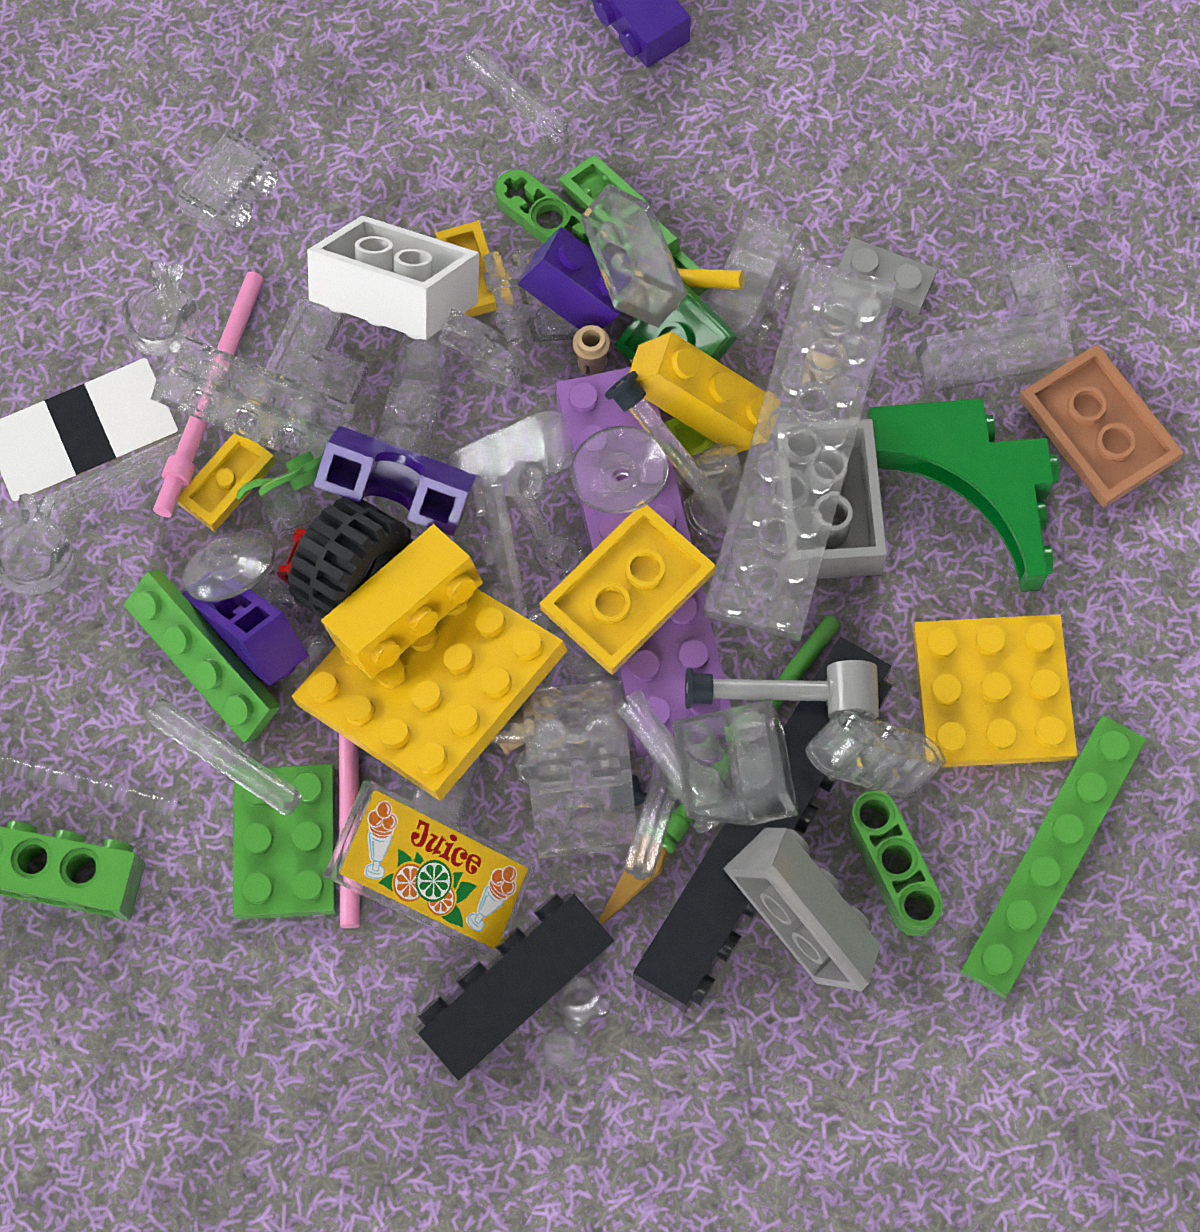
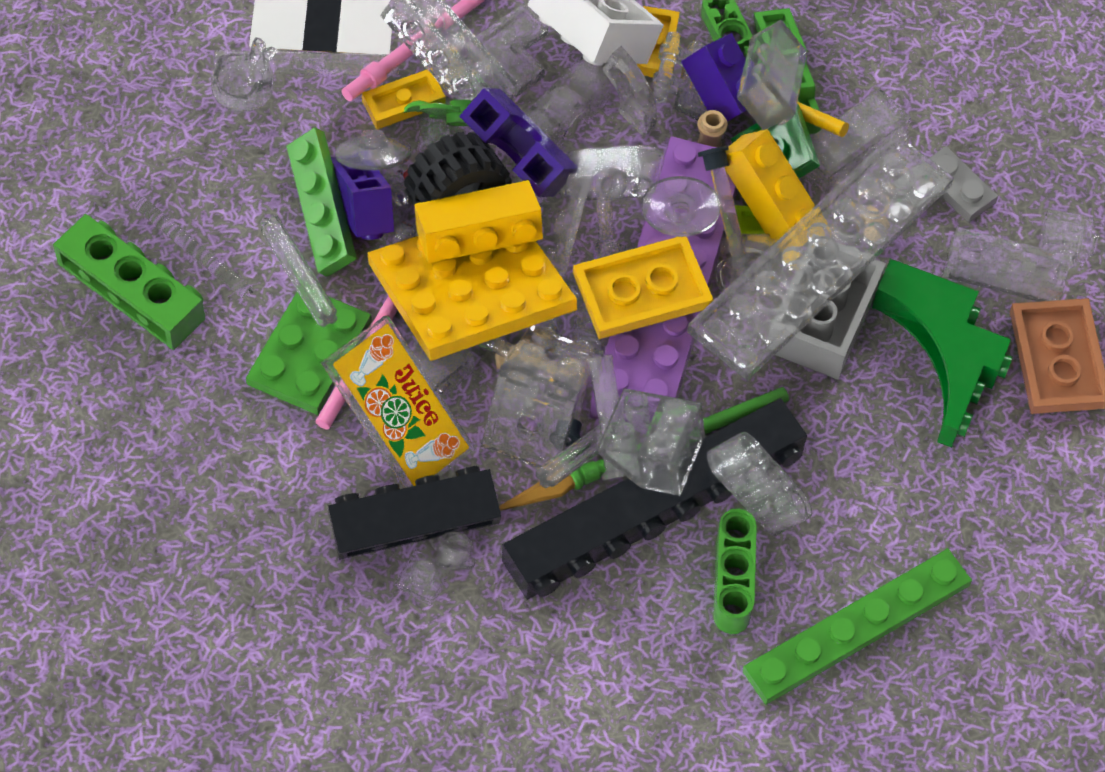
camera: 20 degrees right, 10 degrees down
(806, 909) = (649, 559): light grey slope -> none
(848, 686) = (767, 423): light grey piece -> none
(995, 690) = (877, 496): yellow plate -> none

